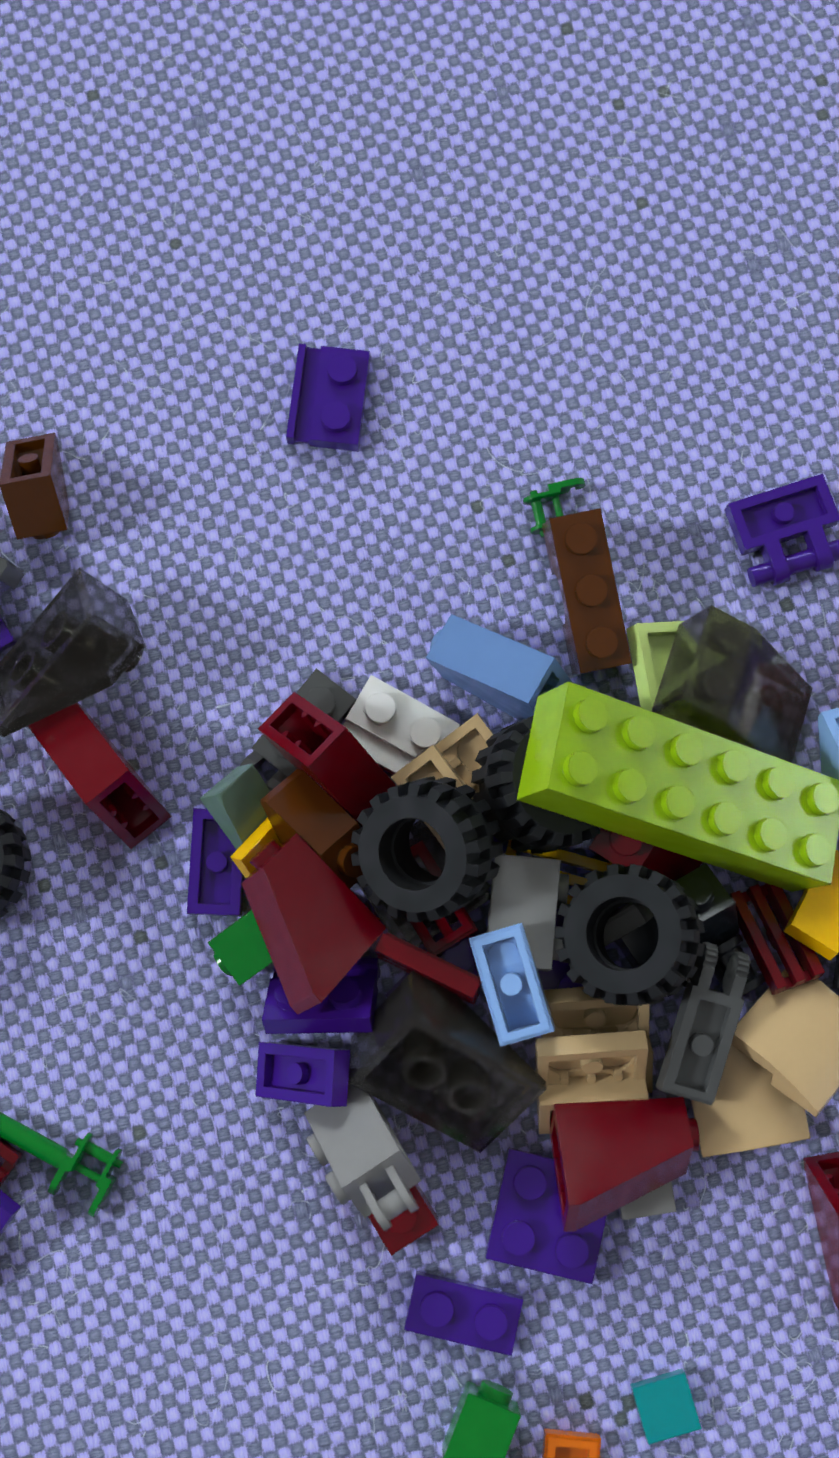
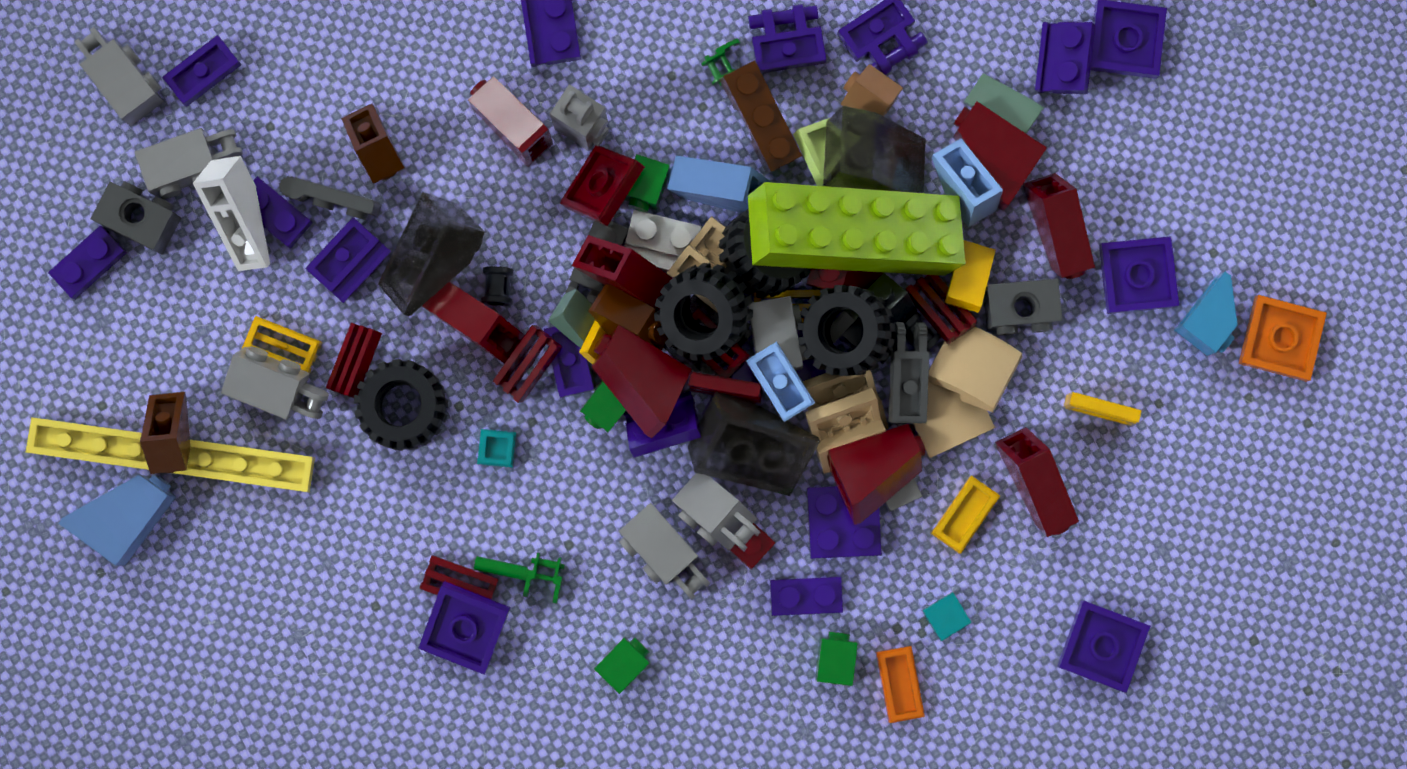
camera: 20 degrees left, 5 degrees up
(77, 961) = (497, 448): none -> teal tile
(144, 837) = (522, 348): none -> dark red tile
(147, 729) = (497, 286): none -> black bush
(162, 1341) = (623, 663): none -> green brick
(234, 505) = (510, 120): none -> slope
(269, 1184) = (661, 549): none -> light grey brick
(303, 1074) = (664, 476): dark purple plate -> none
(330, 525) = (580, 118): none -> light grey brick
(335, 627) = (602, 185): none -> dark red tile
(398, 643) = (649, 186): none -> green brick
(648, 511) = (790, 48): none -> dark purple plate
(732, 1256) = (965, 514): none -> yellow tile
(754, 598) = (871, 91): none -> medium nougat brick

